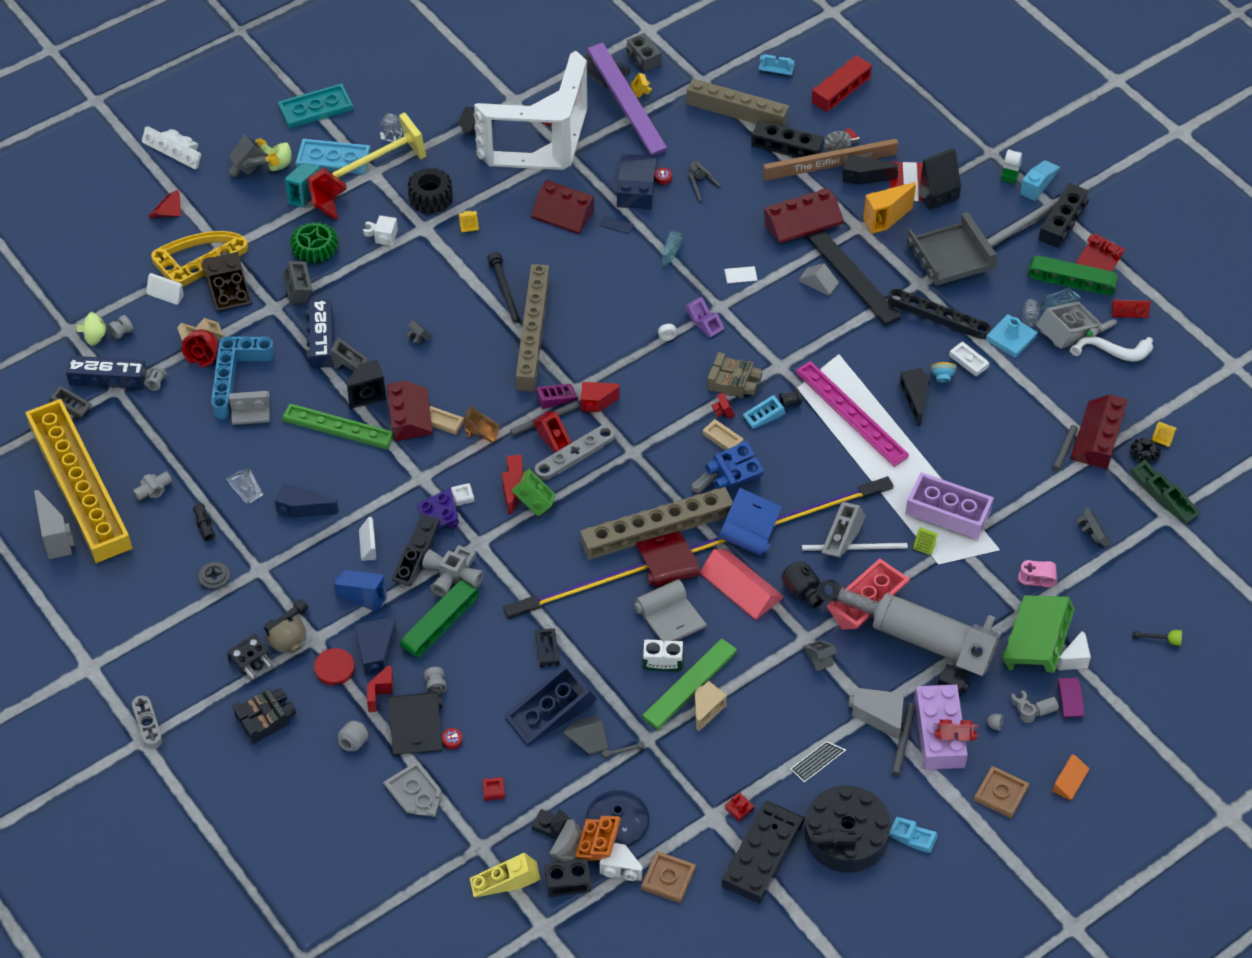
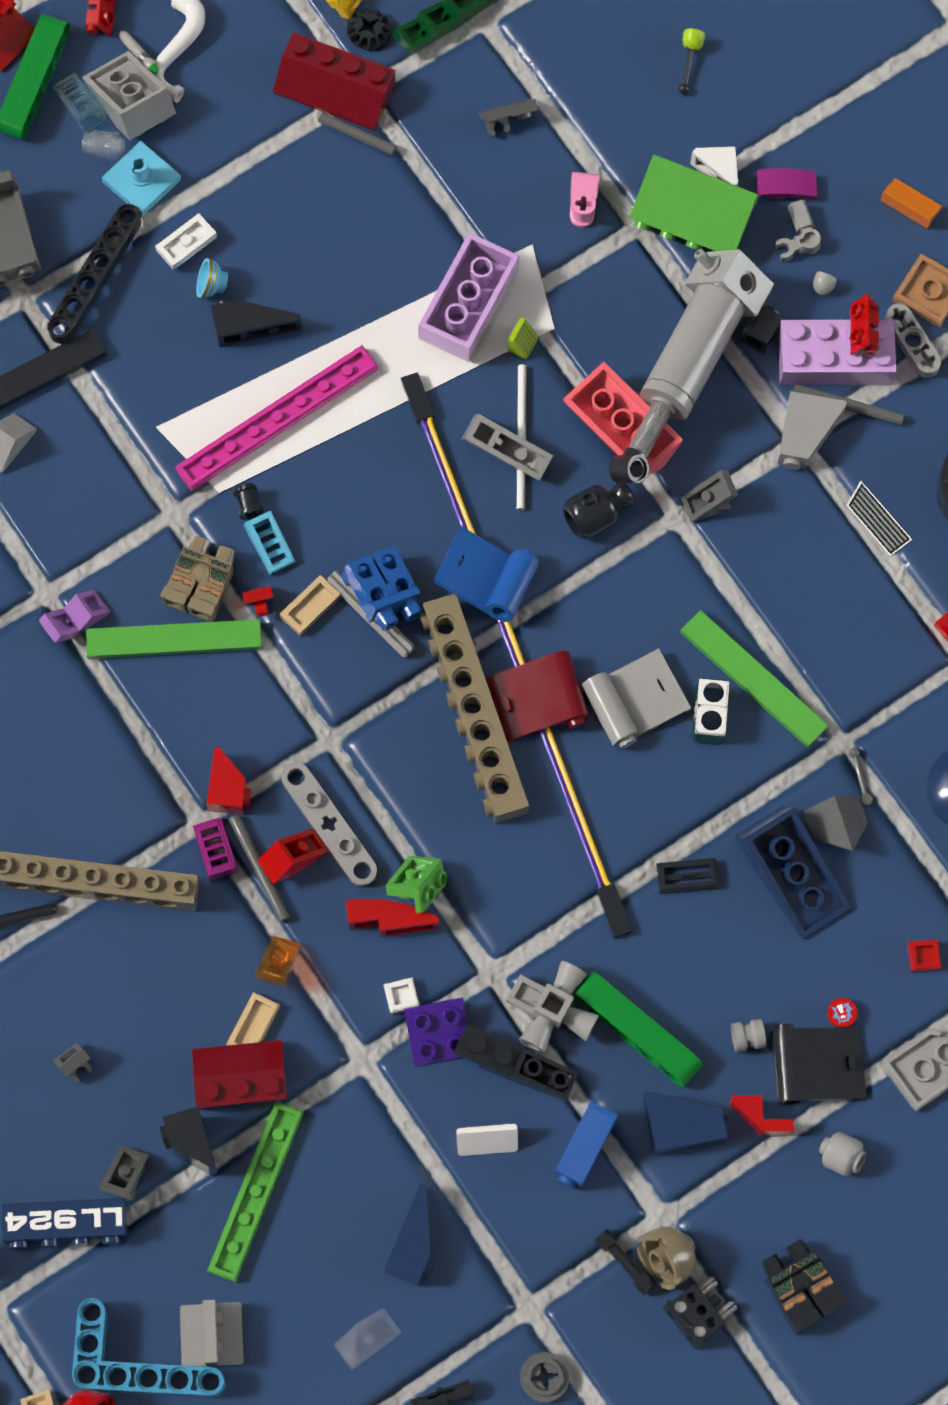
camera: 90 degrees left, 20 degrees up
(334, 666) = (715, 1186): red tile -> none
(667, 332) = (103, 673): white tile -> none
(694, 369) = (173, 639): none -> bright green tile
(708, 703) = (795, 656): tan slope -> none
(740, 583) = (583, 597): coral slope -> none
(954, 787) = (929, 354): none -> light grey beam

